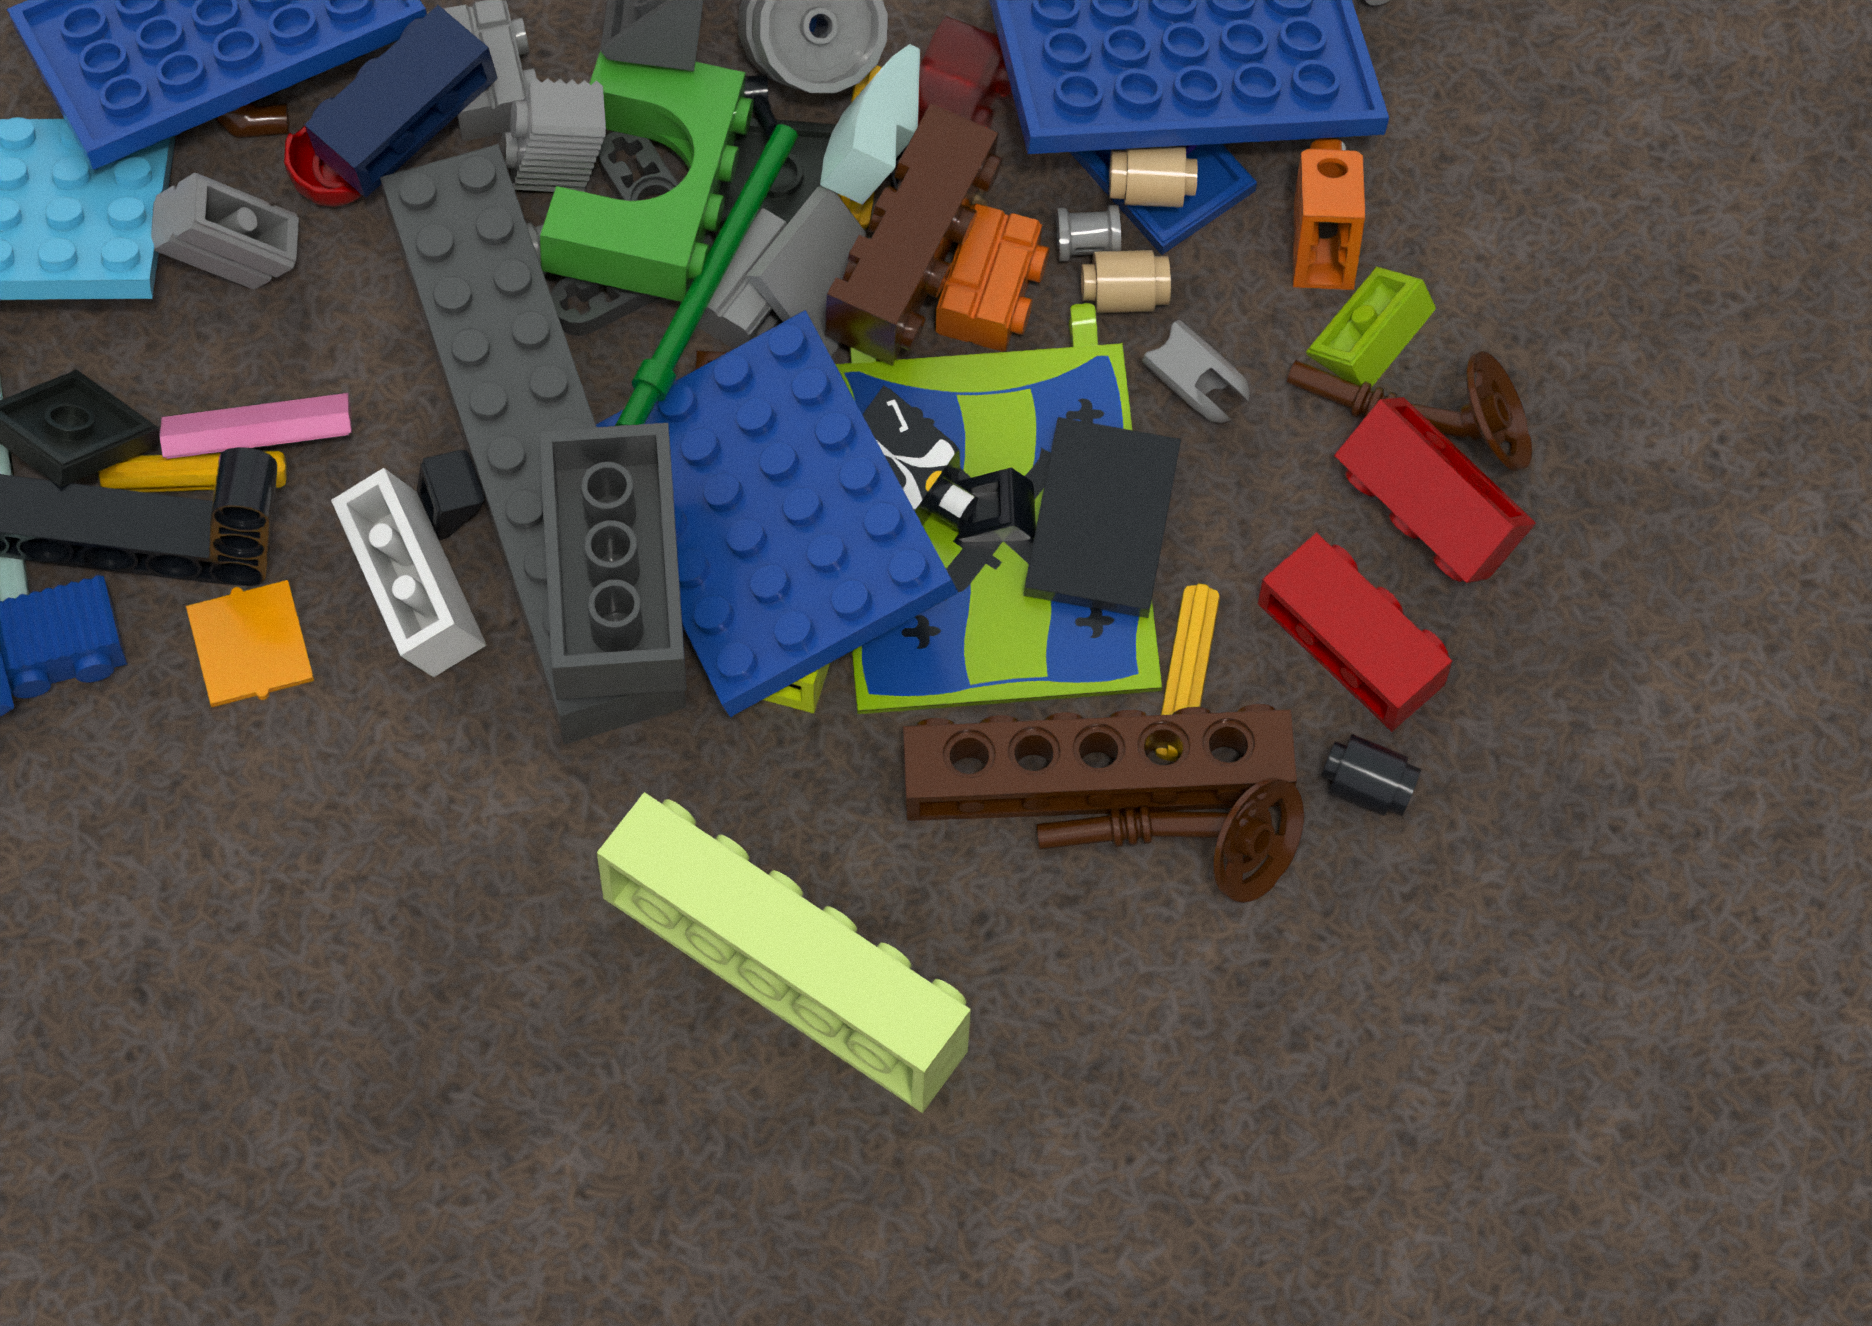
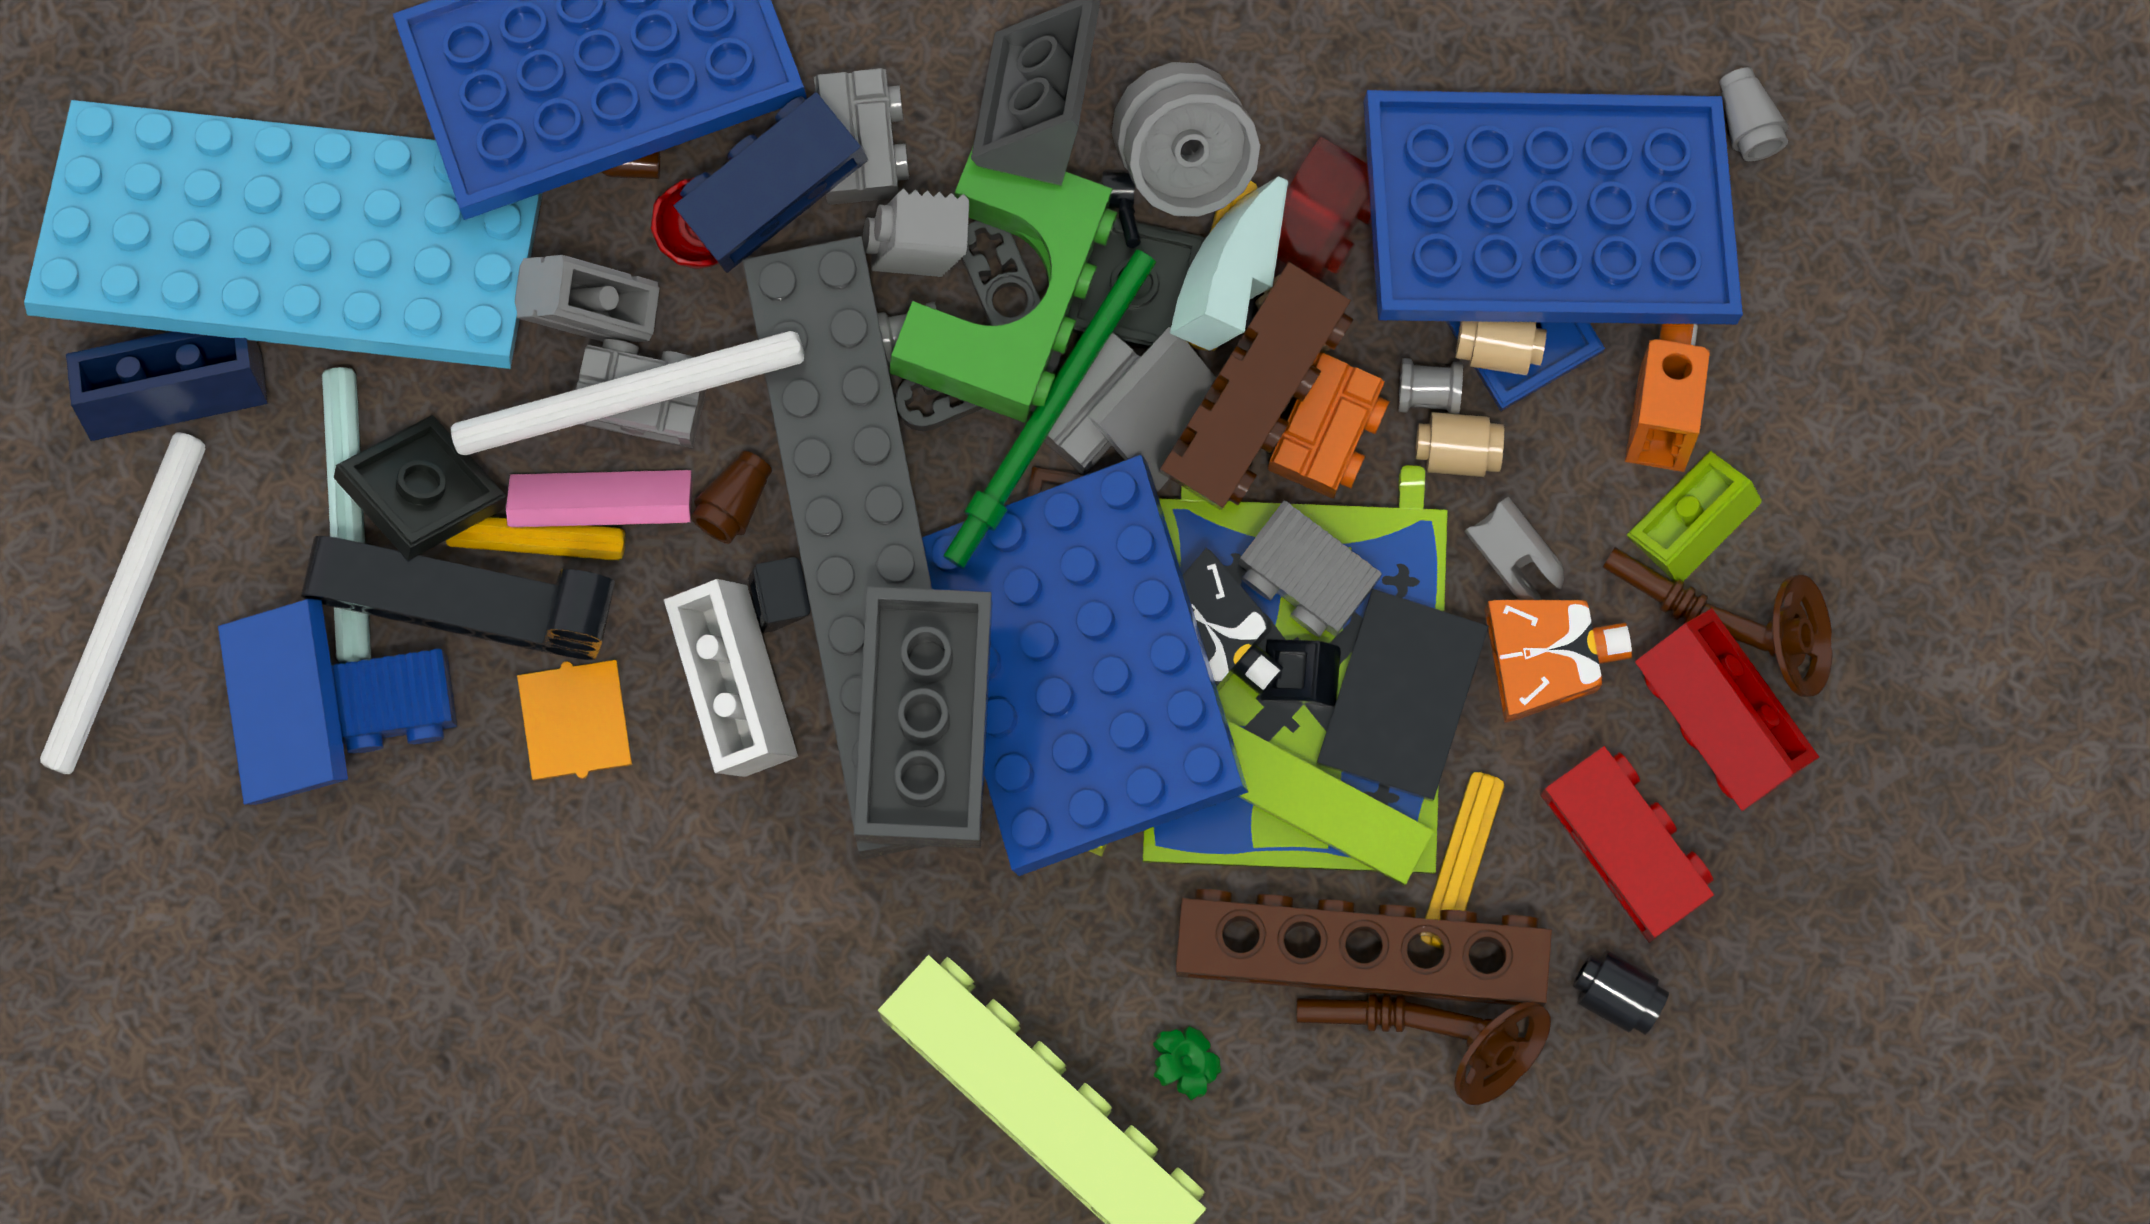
camera: 10 degrees right, 15 degrees up
(273, 308) = (627, 393): none -> white axle
(288, 324) = (667, 421): none -> light grey brick
(391, 412) = (731, 498): none -> reddish brown cone
(928, 896) = (1186, 1060): none -> green plant
(991, 404) = (1308, 571): none -> light grey brick
(1041, 634) = (1329, 808): none -> lime tile
(1245, 461) = (1549, 652): none -> orange torso

